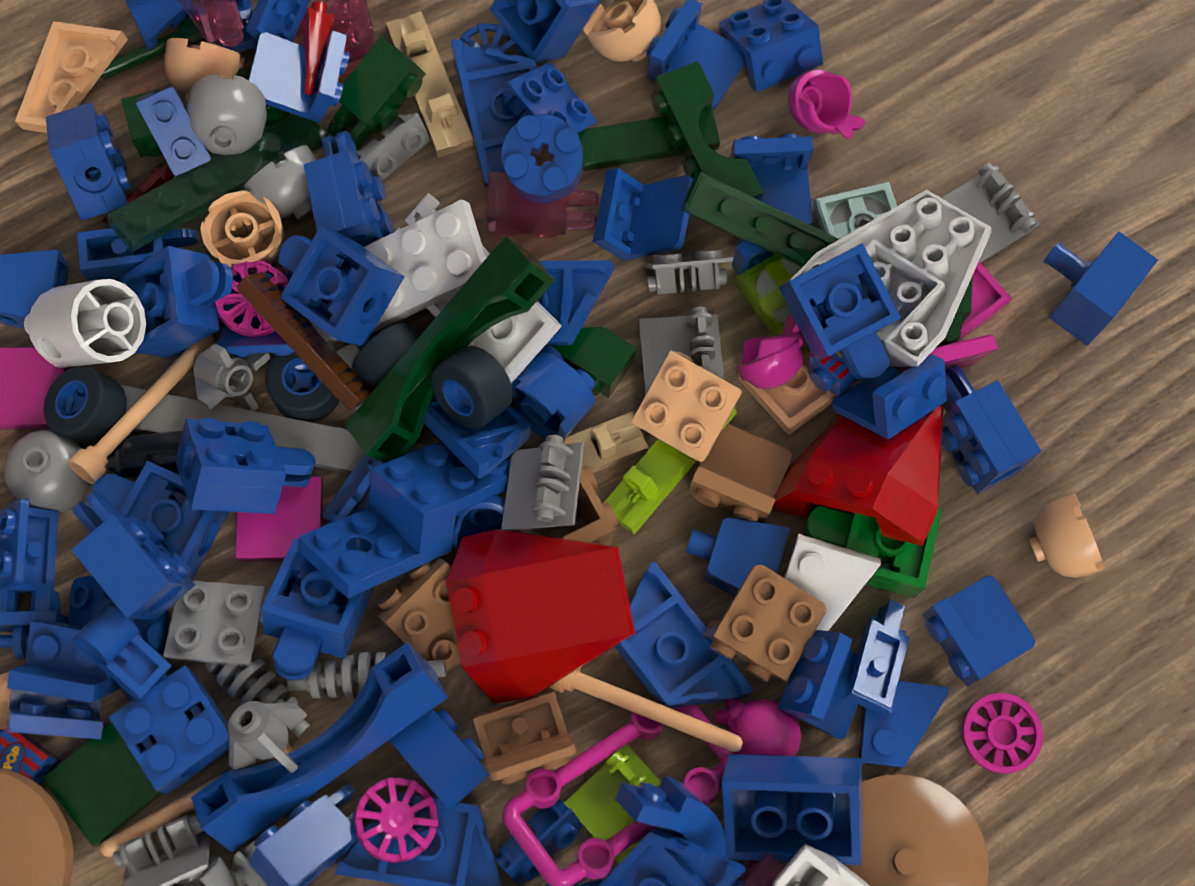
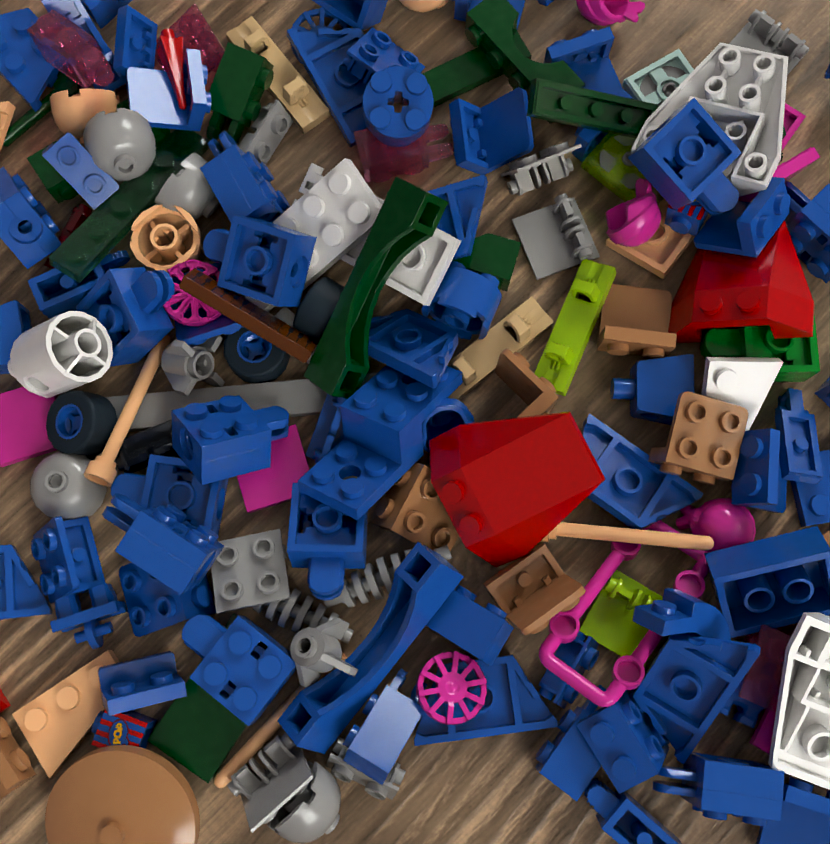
camera: 10 degrees left, 5 degrees up
(58, 666) = (139, 642): blue bracket -> none
(119, 650) = (182, 621): blue plate -> none
(472, 387) = (402, 313): black wheel -> none
(543, 485) = (487, 378): light grey hinge -> none
(687, 406) = (581, 278): light nougat bracket -> none

